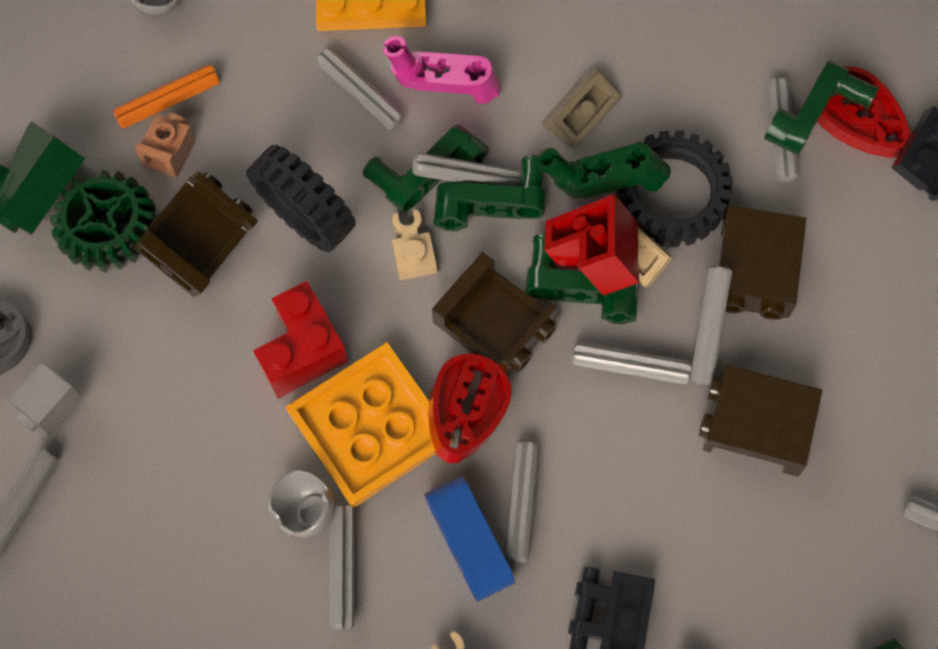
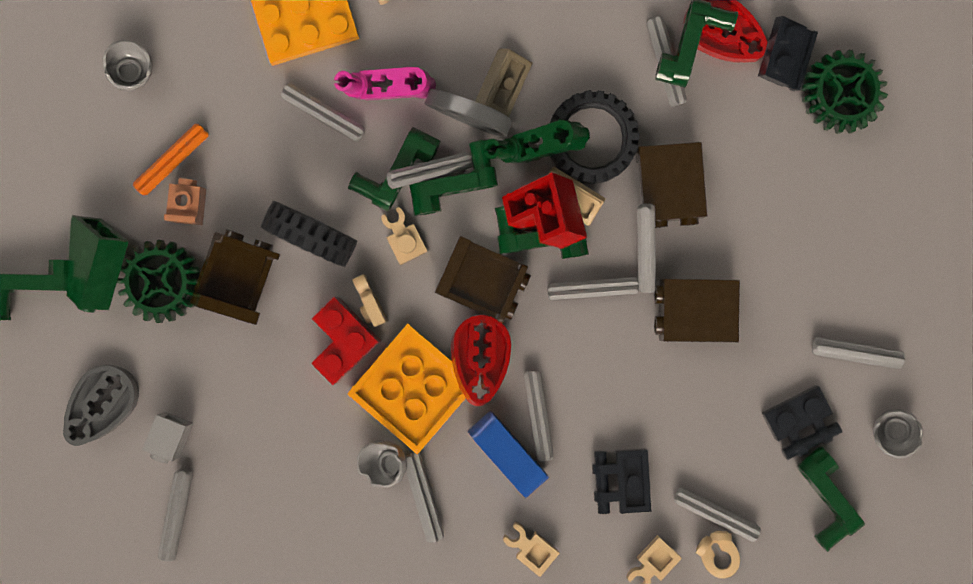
camera: 15 degrees left, 20 degrees up
(347, 316) = (371, 307): none -> tan plate
(532, 120) = (469, 112): none -> dark grey piece
(869, 590) = (798, 413): none -> black plate

